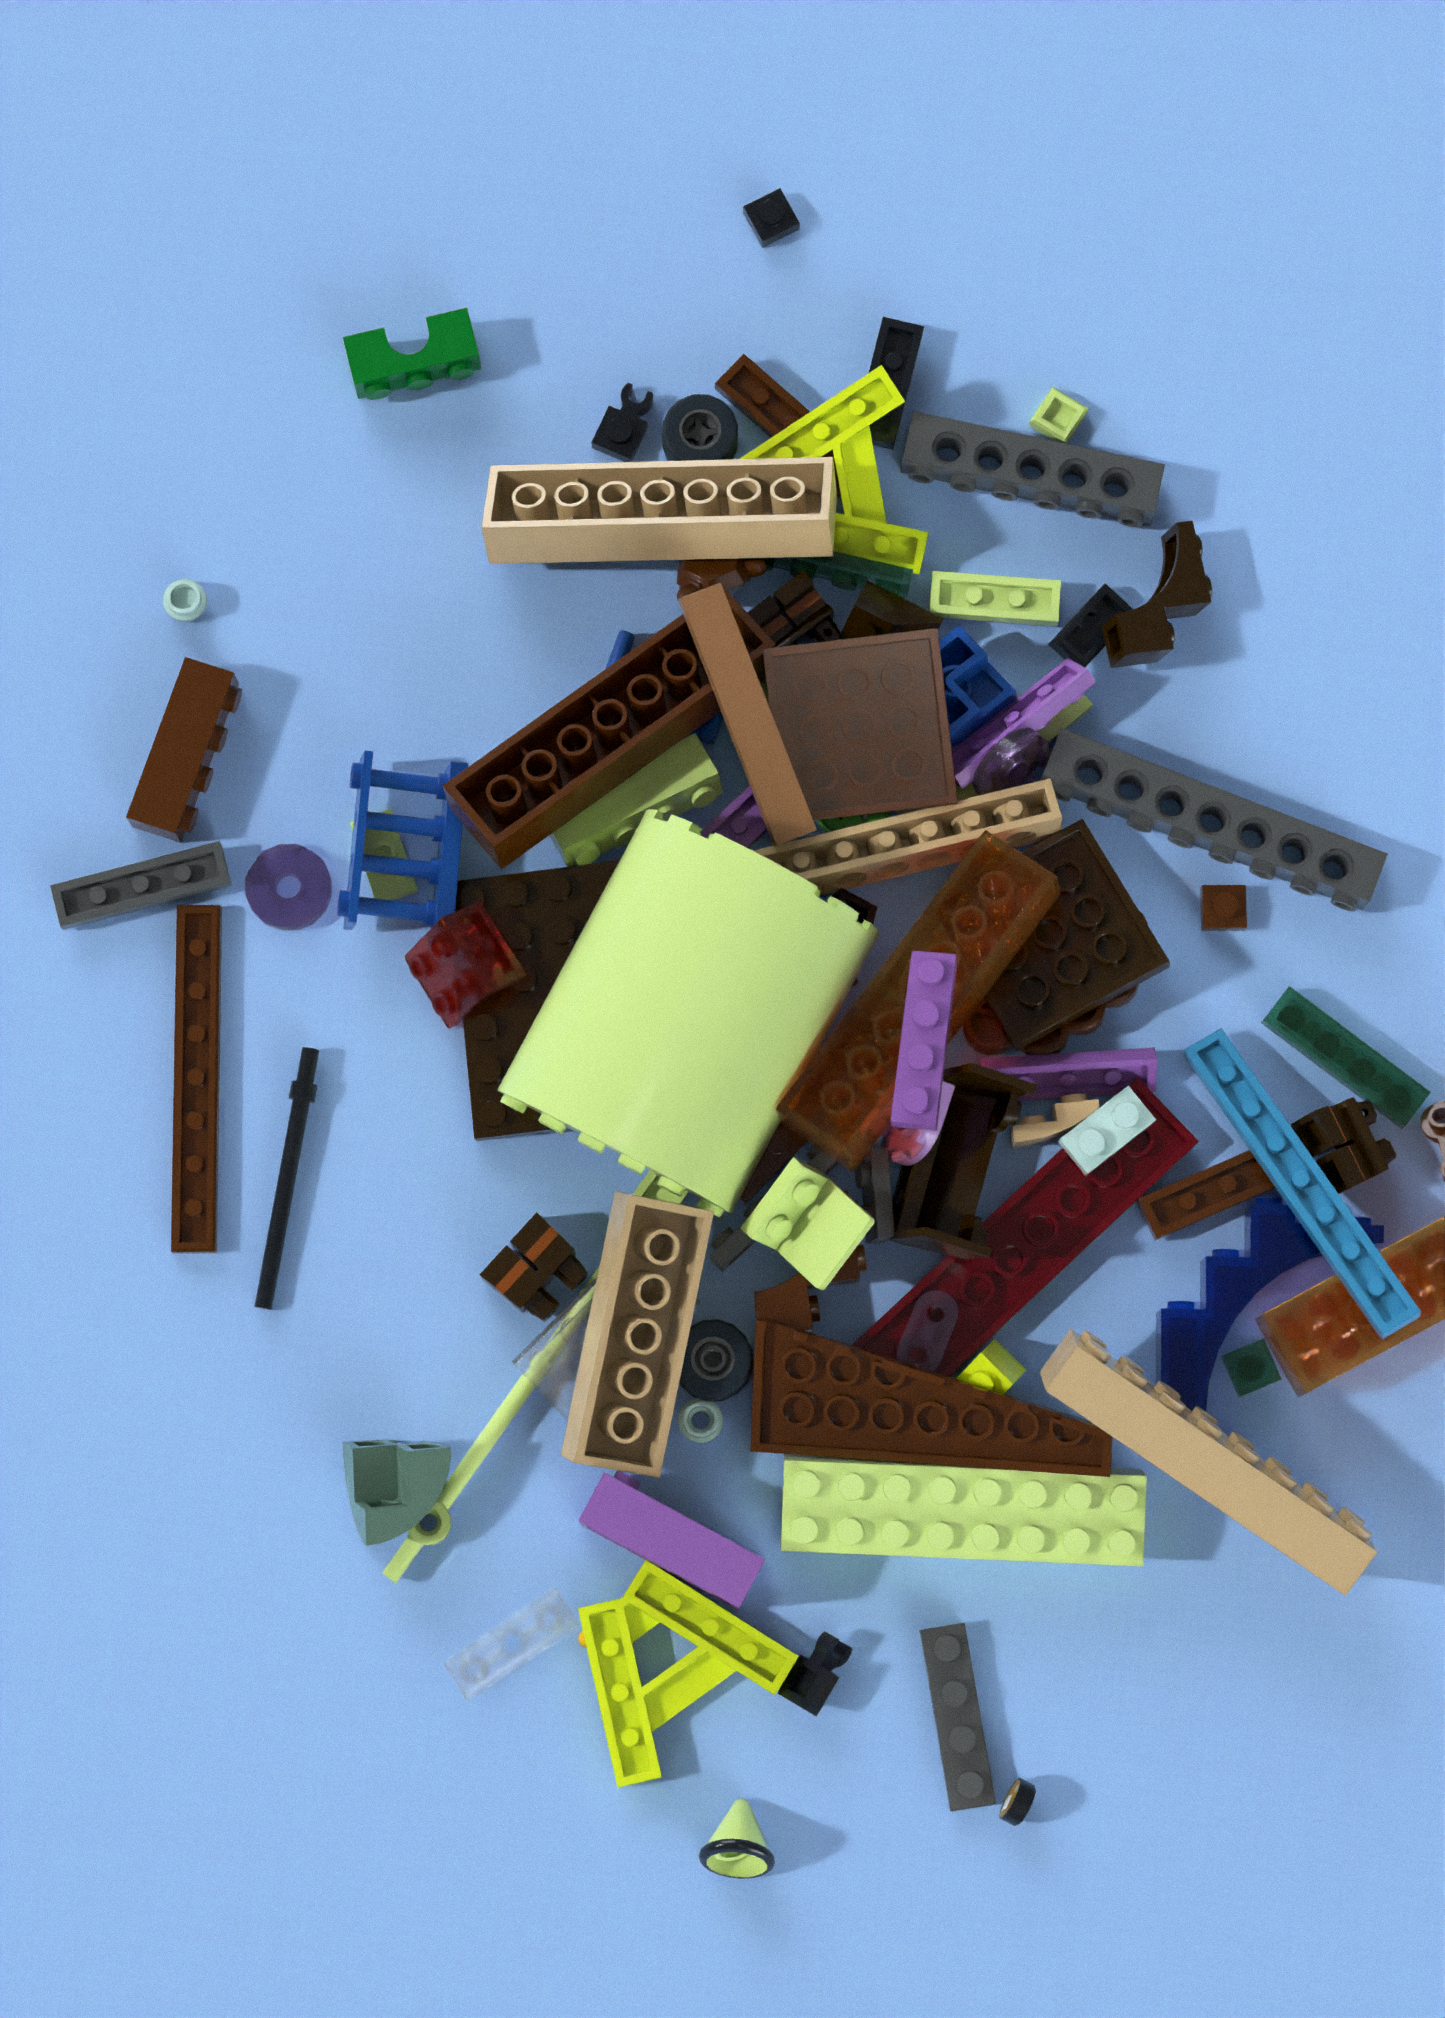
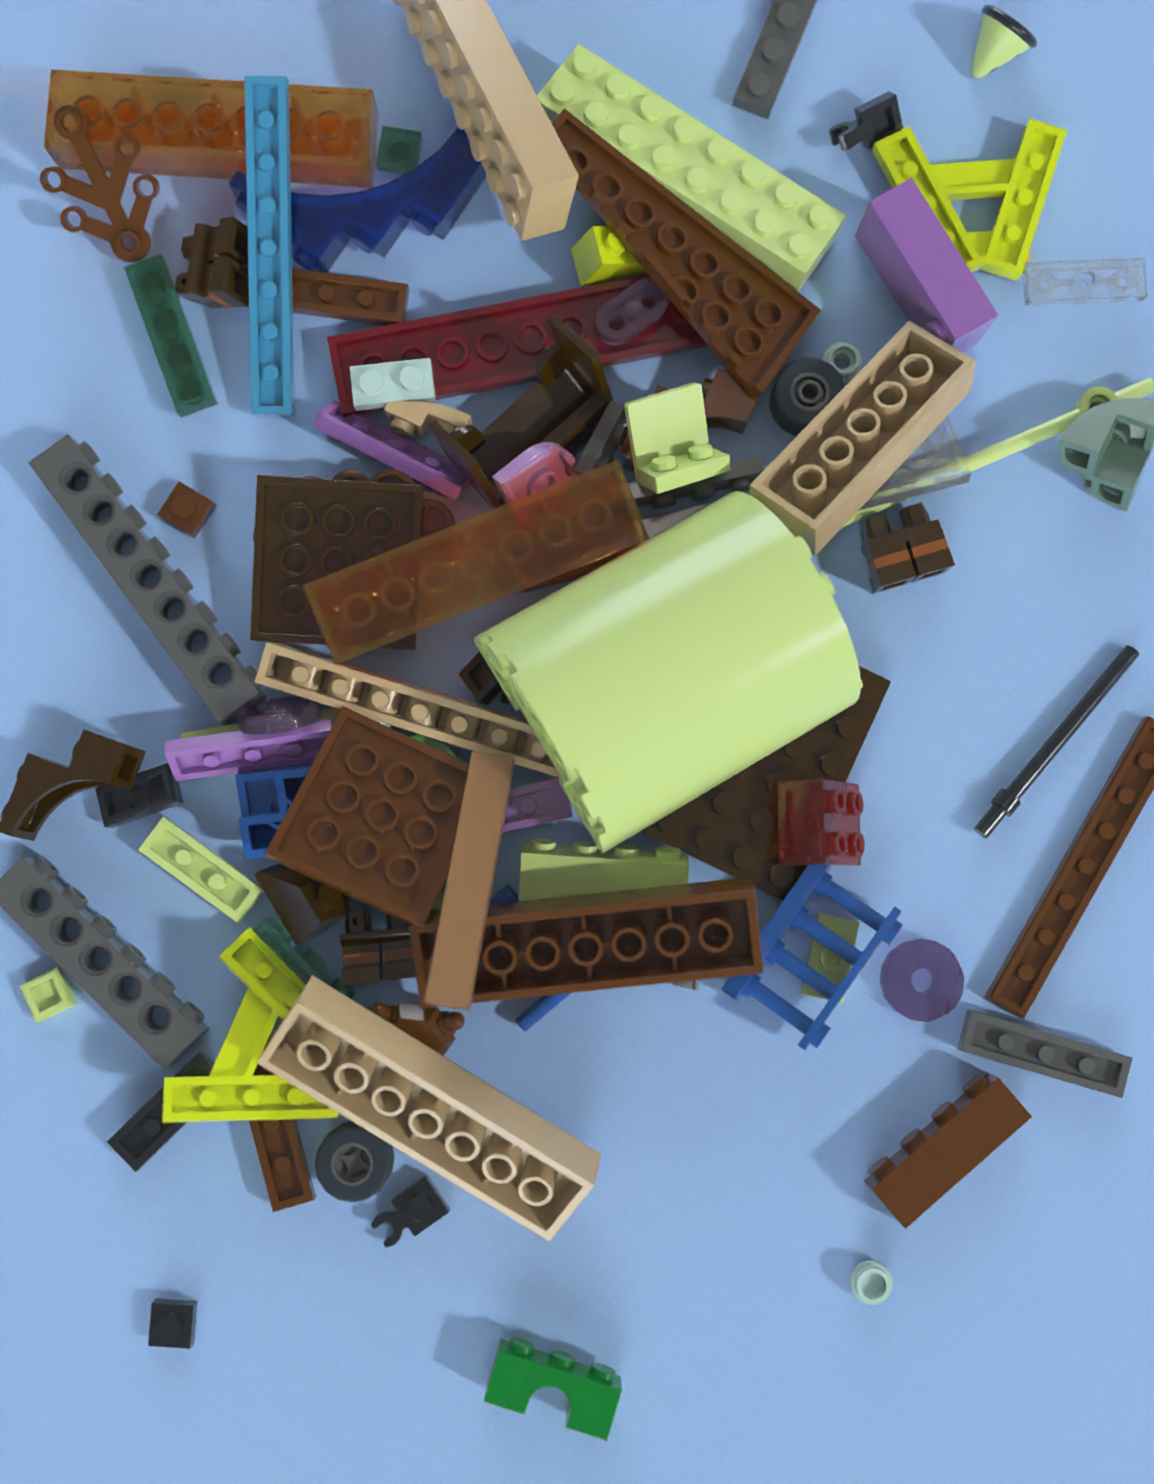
camera: 150 degrees left, 5 degrees up
(924, 1040) = (497, 513): medium lavender plate -> none

